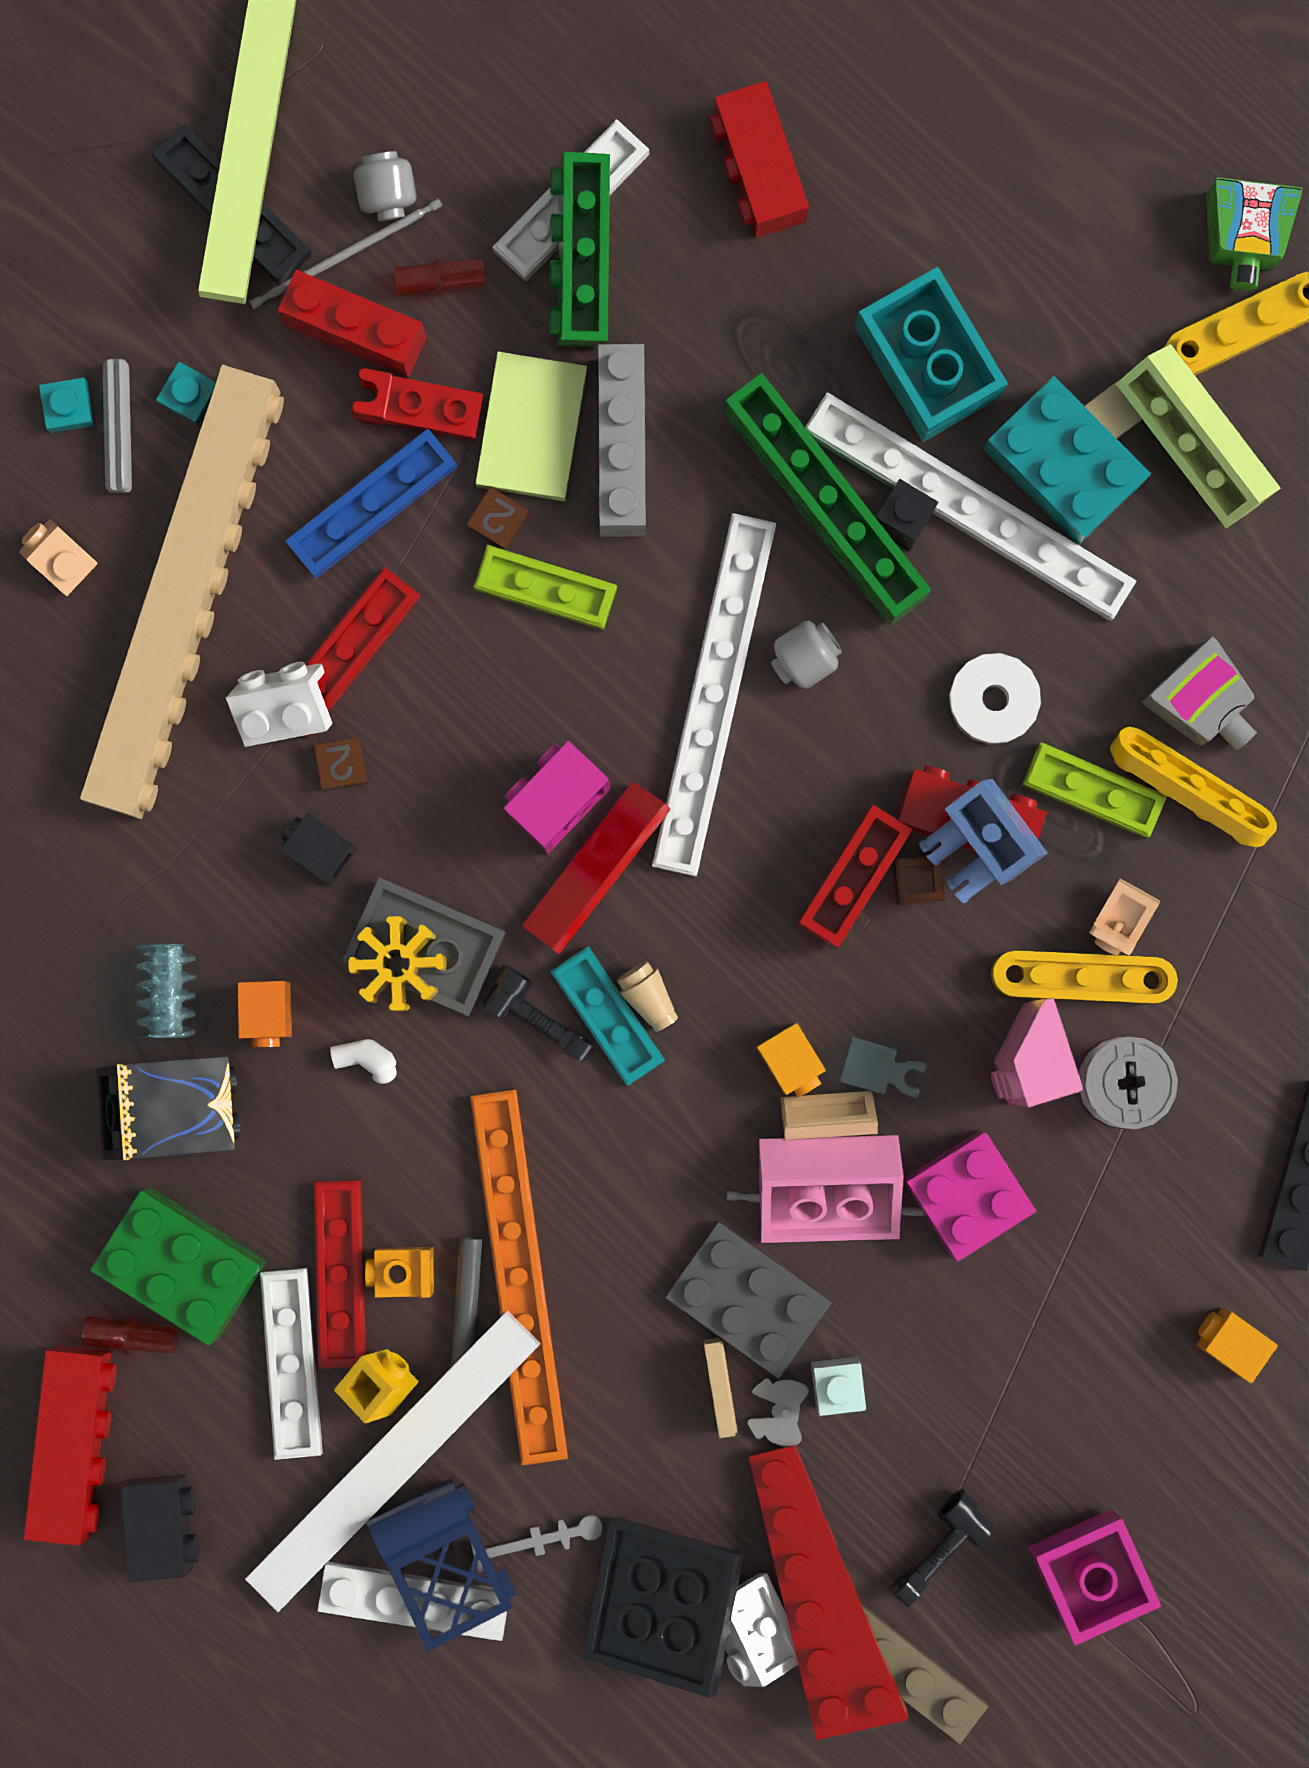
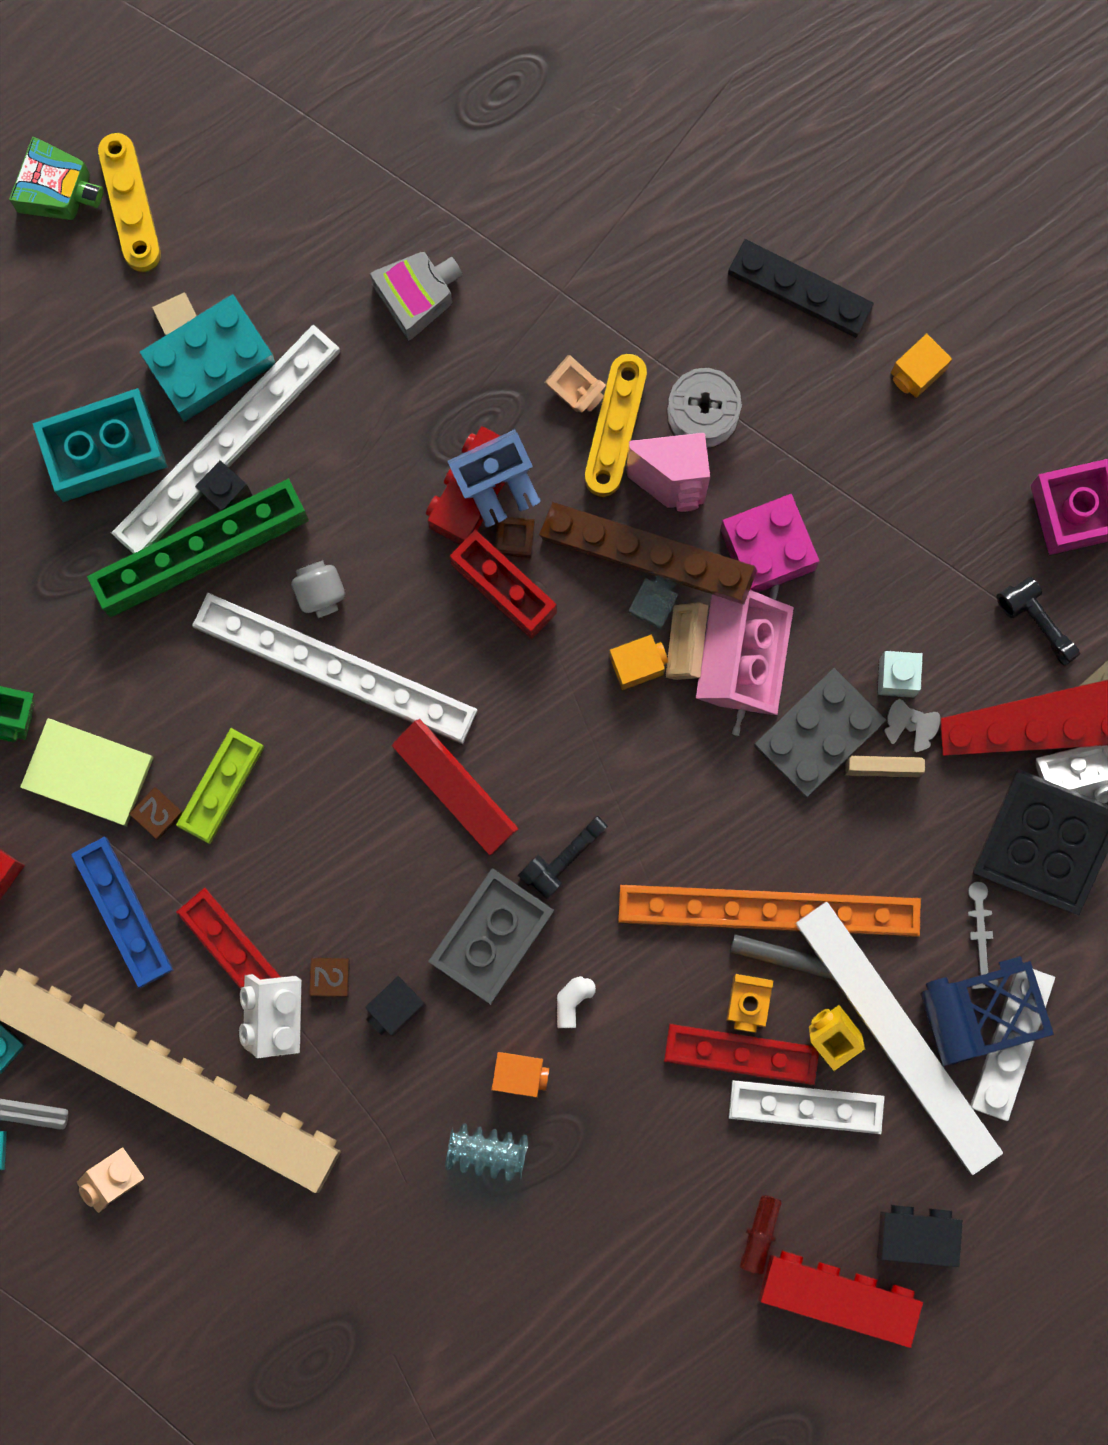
camera: 75 degrees left, 5 degrees down
(167, 1108) = (582, 1170): black slope -> none
(178, 1265) = (712, 1181): green brick -> none
(388, 976) = (494, 946): yellow gear -> none
(418, 405) = (50, 859): red plate -> none
(556, 795) = (393, 803): dark pink brick -> none
(607, 1016) = (575, 801): teal tile -> none
(622, 440) = (115, 700): light grey brick -> none
(647, 995) = (564, 765): tan cone -> none
(927, 1048) = (648, 553): none -> reddish brown plate
(1013, 679) = (383, 430): white tile -> none
(1094, 790) = (471, 389): lime tile -> none
(1193, 787) = (483, 313): yellow plate -> none
(1197, 435) = (210, 254): yellowish green brick -> none

